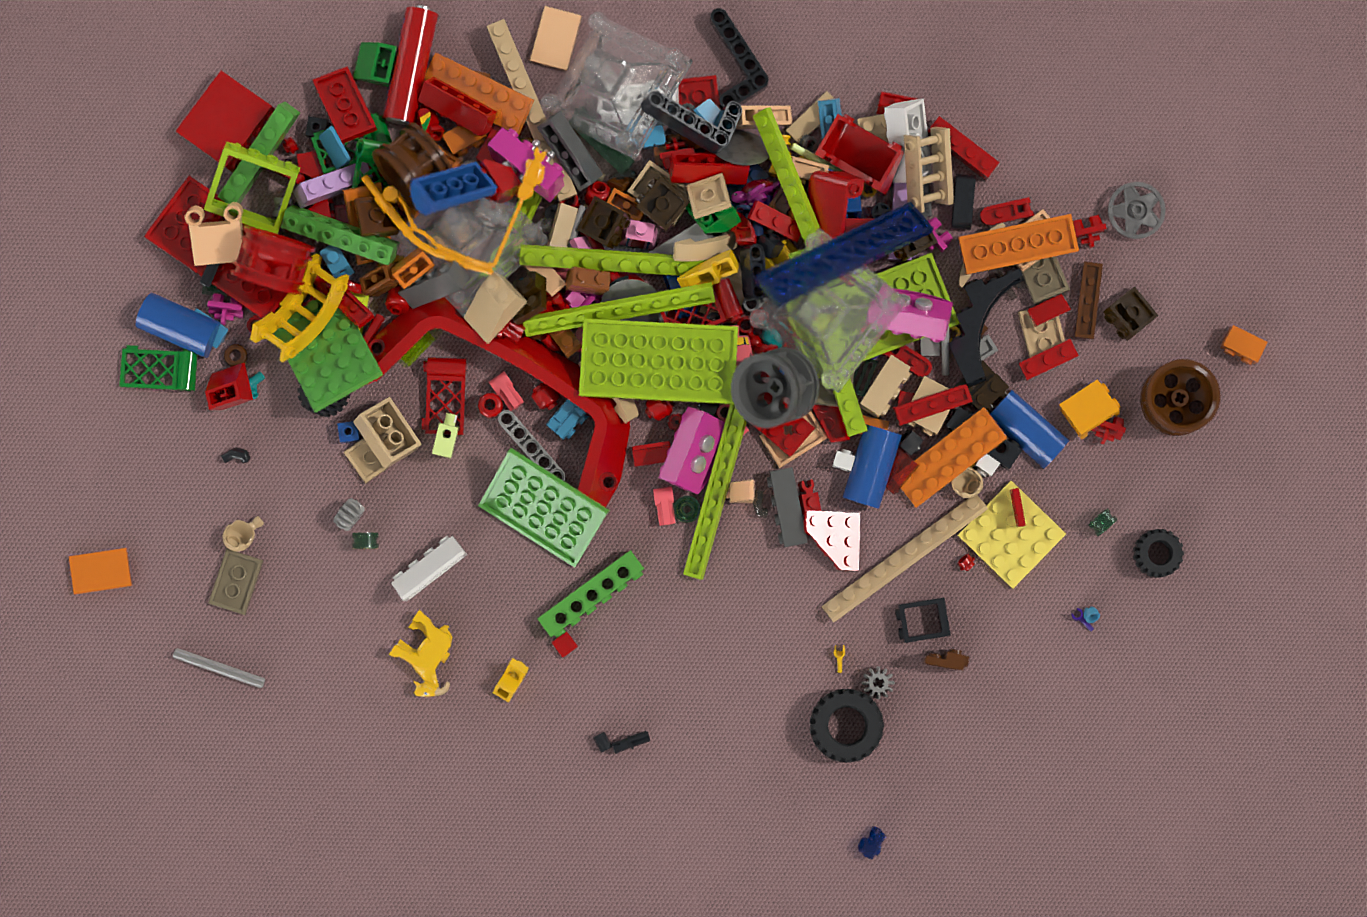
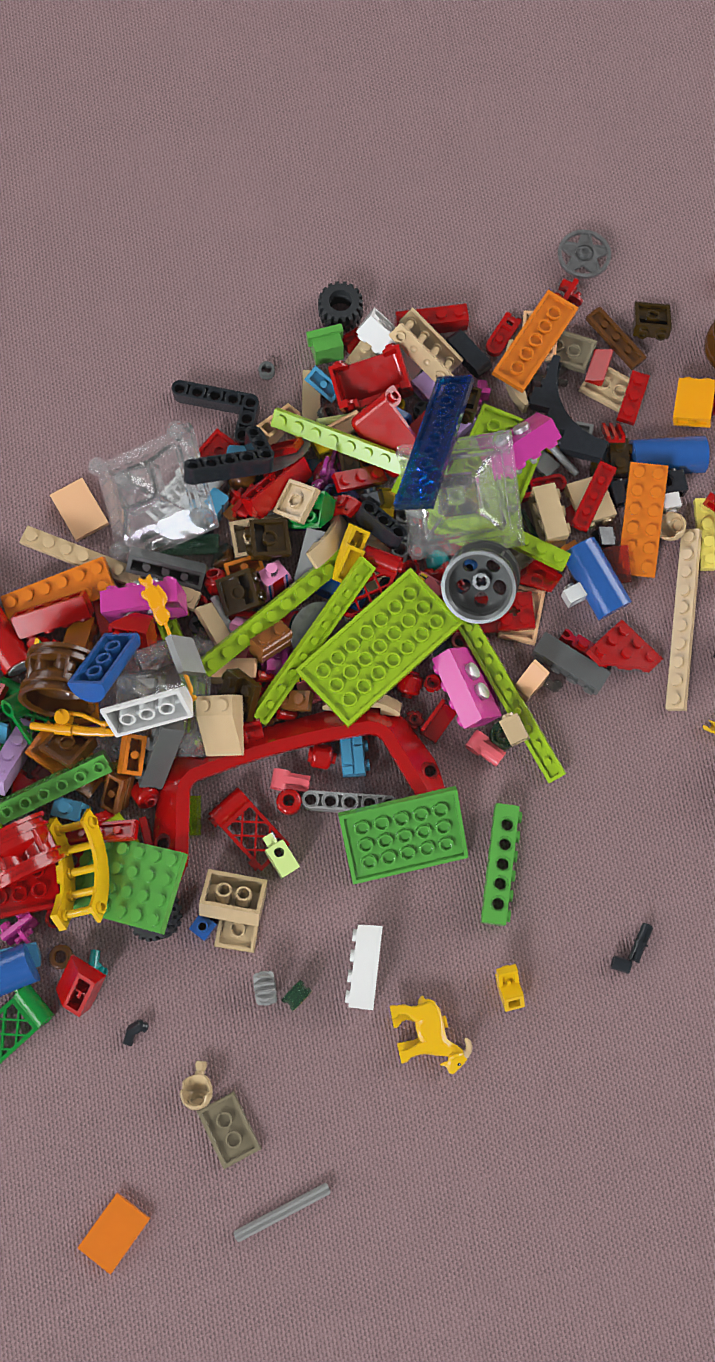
camera: 45 degrees left, 10 degrees down
(449, 252) = (149, 711): none -> white slope
(513, 236) = (185, 655): none -> light grey tile
(564, 644) = (519, 921): red tile -> none
(642, 435) = (414, 714): none -> red plate
(693, 512) = (514, 729): none -> tan slope
(747, 142) = (287, 447): none -> red tile
(795, 66) = (264, 375): none -> dark grey bush
(862, 89) = (326, 344): none -> bright green plate
(914, 55) = (340, 294): none -> black tyre
(1008, 365) = (616, 431): none -> red tile

